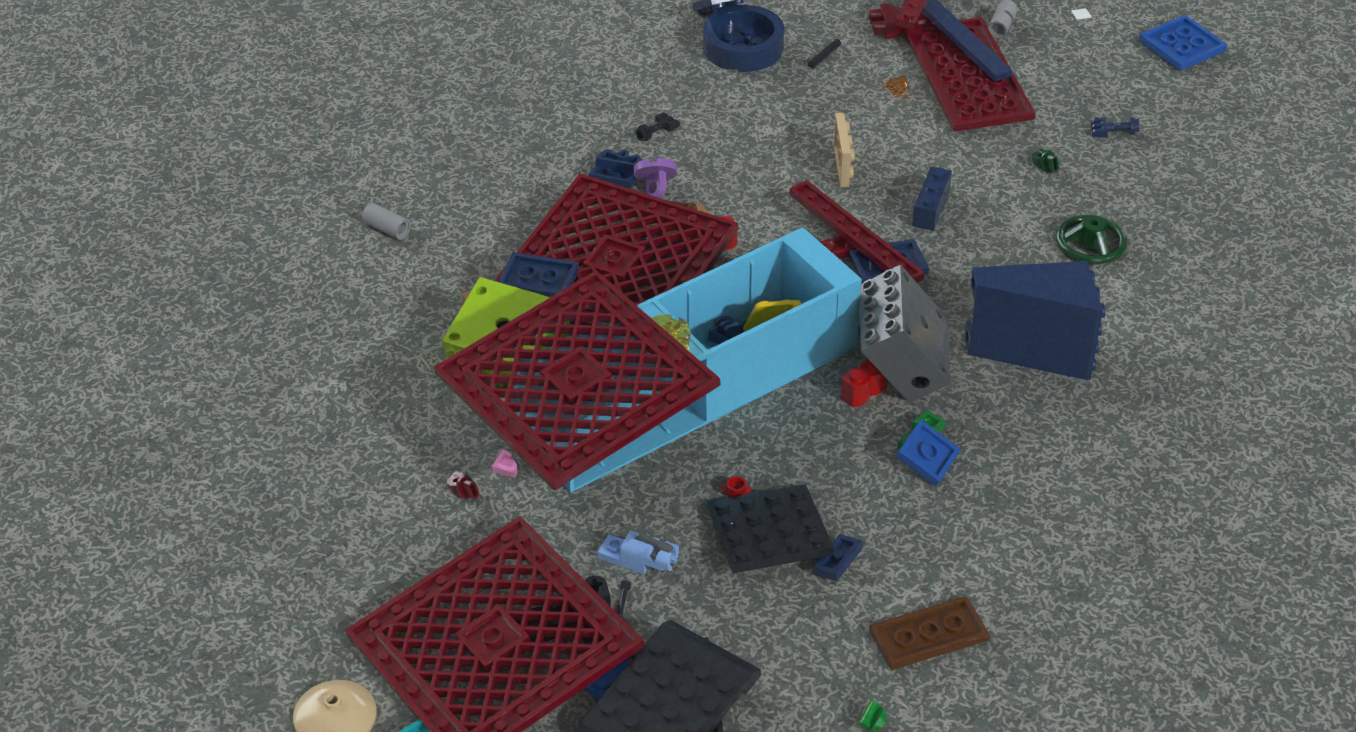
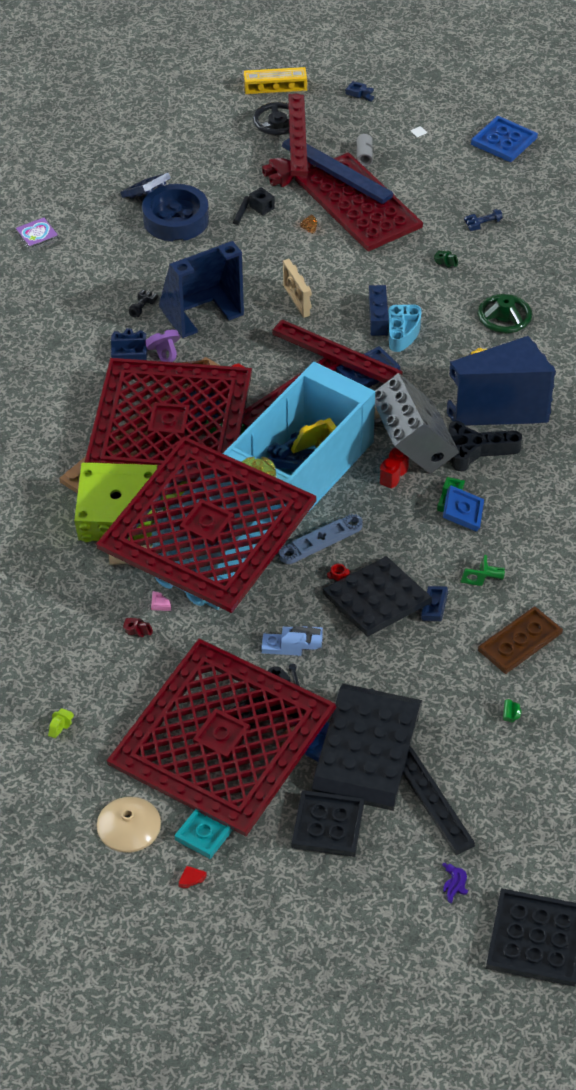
camera: 20 degrees left, 5 degrees up
(316, 568) = (60, 720): none -> lime piece
(539, 273) = (121, 448): dark blue plate -> none
(576, 27) = (37, 234): none -> tile
(720, 444) = (311, 544): none -> sand blue piece
(722, 112) = (200, 279): none -> dark blue windscreen
(851, 48) = (261, 201): none -> black brick
(922, 536) = (485, 571): none -> green bracket
(955, 223) = (403, 325): none -> medium azure beam
(976, 381) = (475, 444): none -> black beam

